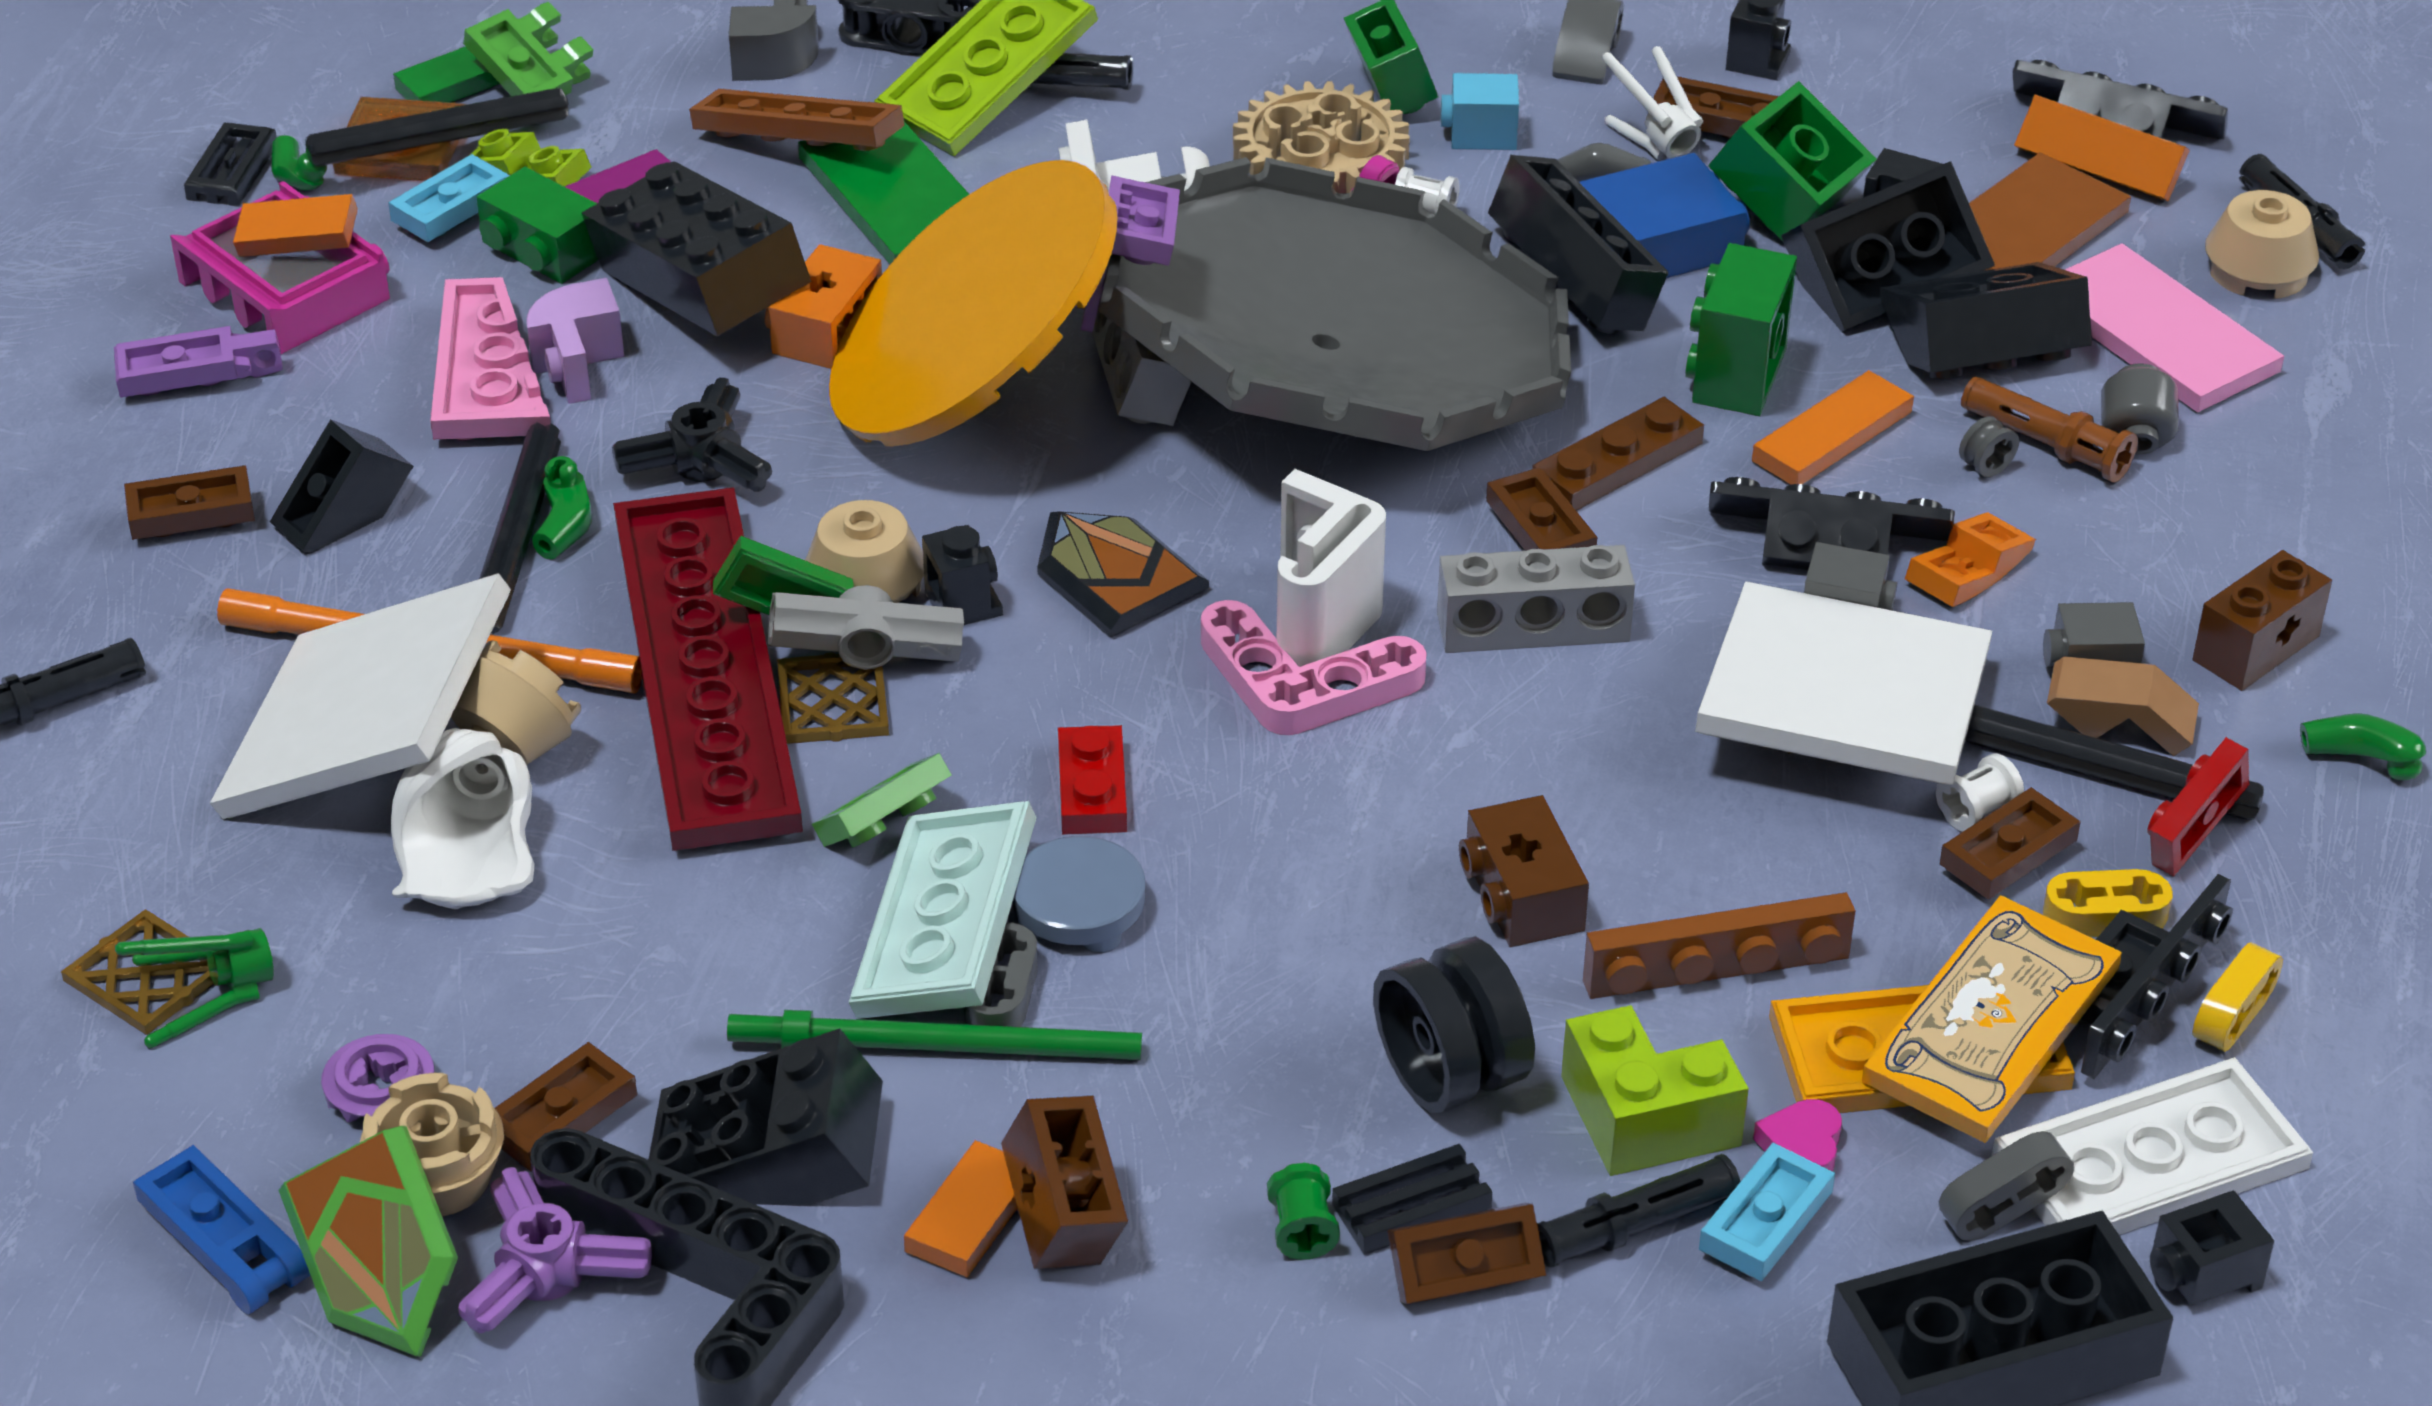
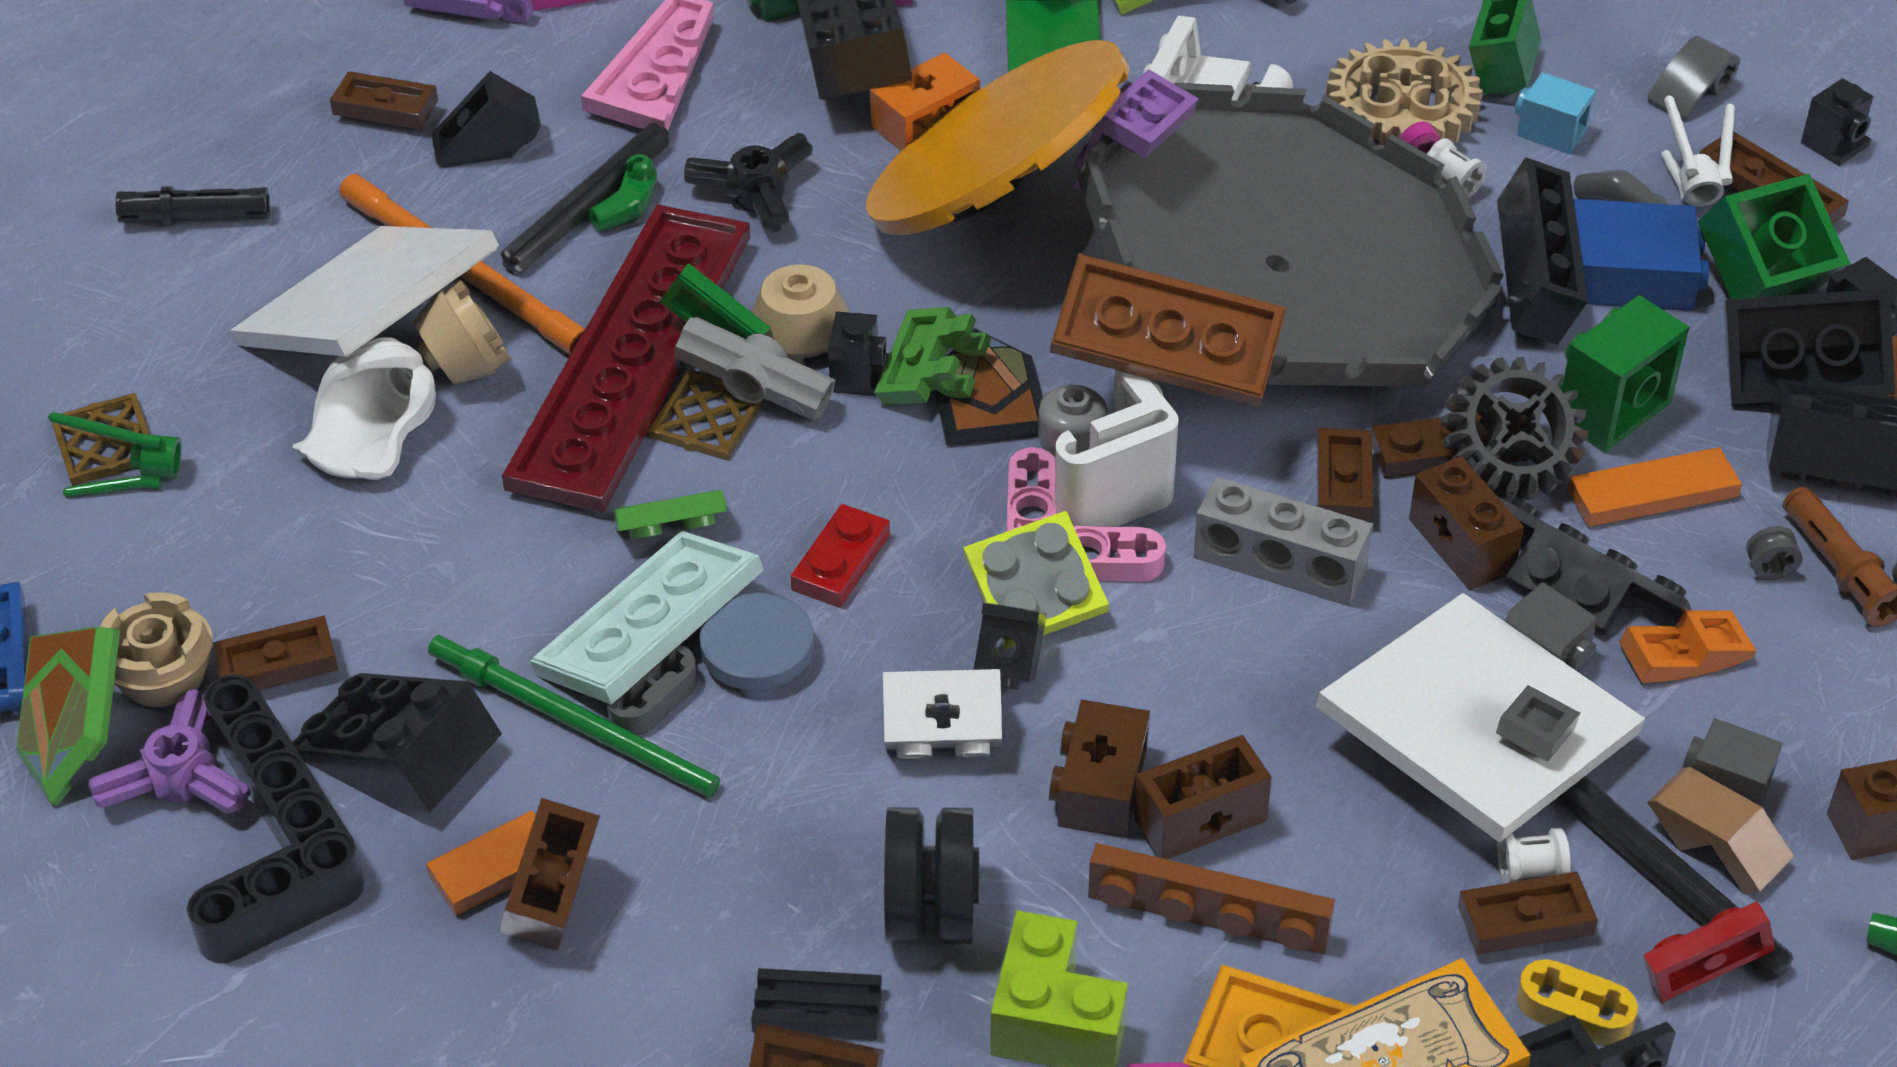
camera: 30 degrees right, 5 degrees up
(386, 1055) = (167, 568): medium lavender gear -> none
(574, 329) = (731, 59): lavender brick -> none
(1028, 556) = (919, 360): none -> bright green plate
(1242, 562) = (1069, 409): none -> light grey head
(1297, 878) = (967, 692): none -> white brick
(1304, 1224) = (720, 977): green bush -> none
(1316, 423) = (1168, 330): none -> dark orange tile
(1321, 723) = (1040, 571): none -> light grey piece
(1326, 776) = (1026, 630): none -> black brick
(1649, 854) = (1202, 797): none -> reddish brown brick
(1694, 406) = (1530, 443): none -> dark grey gear
(1695, 519) = (1465, 522): none -> reddish brown brick
(1918, 663) = (1537, 723): none -> dark grey plate

